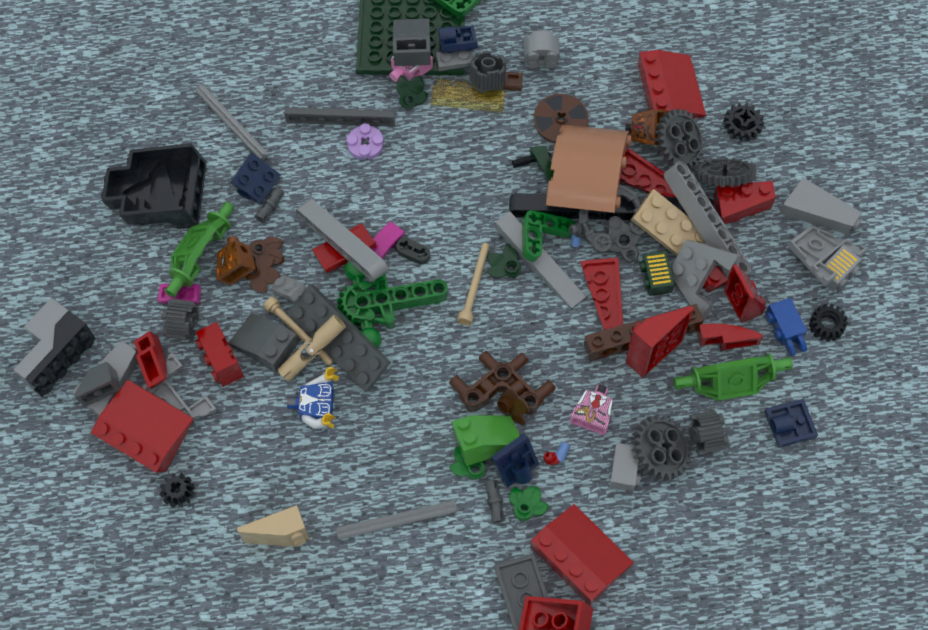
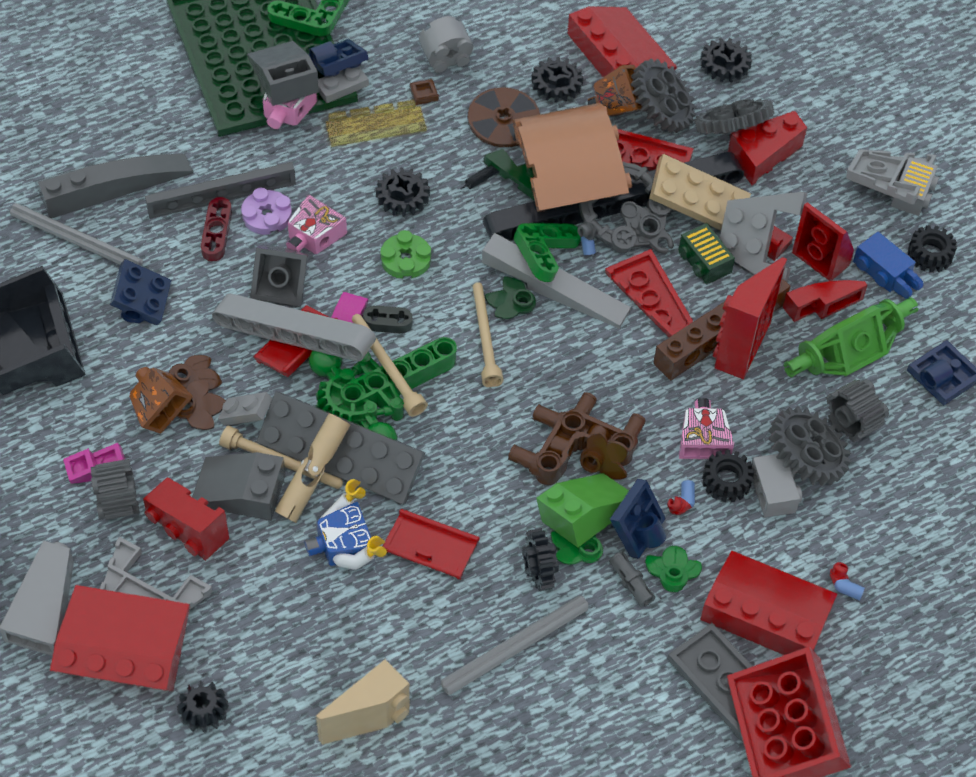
camera: 25 degrees left, 10 degrees down
(97, 384) = (37, 602): dark grey slope -> none
(151, 359) = (95, 552): red slope -> none
(192, 248) = (91, 398): bright green plate -> none
(268, 85) = (107, 181): none -> dark grey wedge
(269, 204) = (172, 319): dark grey pin -> none
(326, 137) = (211, 221): none -> dark red beam
(351, 194) = (278, 275): none -> dark grey slope
(369, 422) = (444, 545): none -> red door
(391, 165) = (315, 226): none -> torso
(398, 323) = (413, 402): none -> tan piece
(411, 89) = (301, 134): dark green plate -> none
(434, 467) = (540, 559): none -> black gear
(444, 215) = (405, 243): none -> bright green plate
(454, 159) = (402, 192): none -> black gear
(488, 71) = (391, 85): dark grey brick -> none
(601, 438) = (728, 489): none -> black tyre
(611, 100) = (557, 79): none -> black gear
(640, 556) = (842, 584): none -> arm
(702, 213) = (728, 164): light grey beam -> none
(820, 208) = (862, 127): light grey slope -> none

